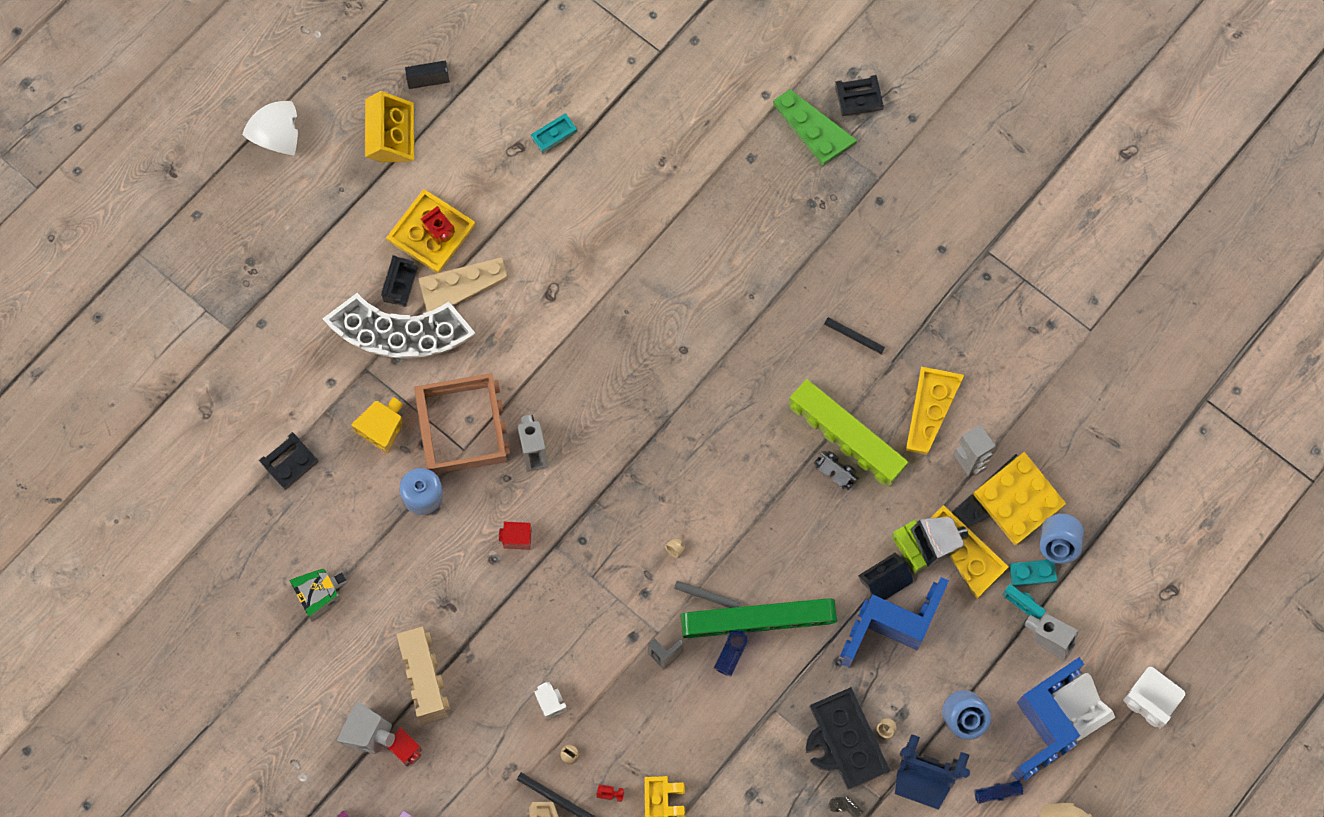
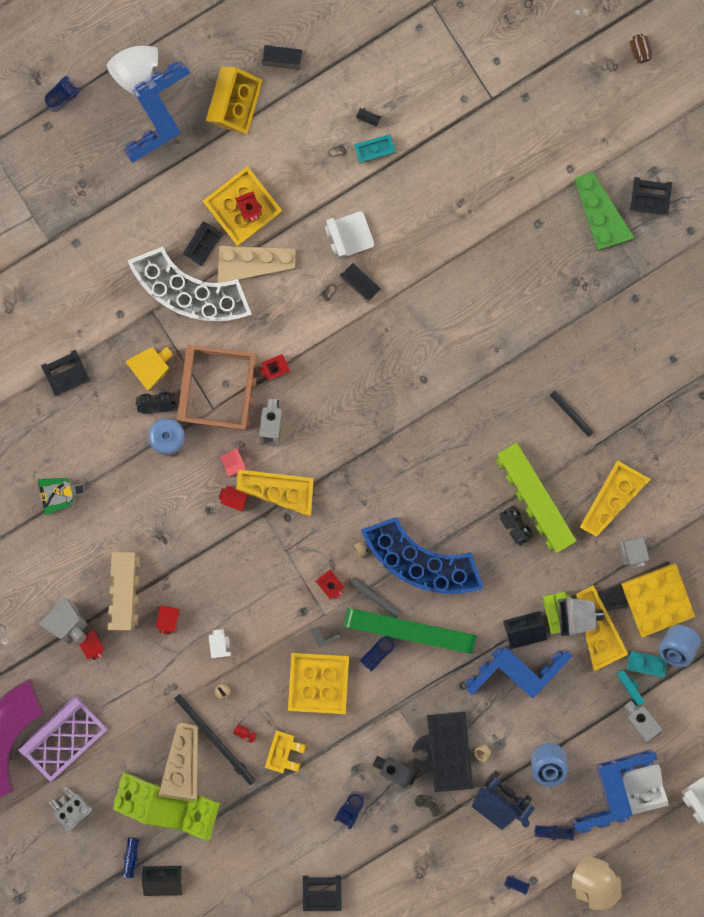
camera: 20 degrees right, 15 degrees up
(203, 174) = (62, 93): none -> clear blue piece
(308, 158) = (156, 111): none -> blue bracket
(390, 463) = (147, 402): none -> black hinge
(482, 691) = (167, 619): none -> red brick
(504, 498) = (233, 462): none -> coral panel
(521, 377) = (278, 361): none -> red brick
(536, 105) = (368, 117): none -> black pin
(554, 225) = (349, 234): none -> white bracket
(567, 509) = (283, 490): none -> yellow wing
(581, 271) = (360, 282): none -> black panel
(655, 604) = (328, 577): none -> red brick
(675, 709) = (318, 683): none -> yellow plate
(743, 540) = (420, 566): none -> blue brick
(807, 778) = (404, 774): none -> black torso

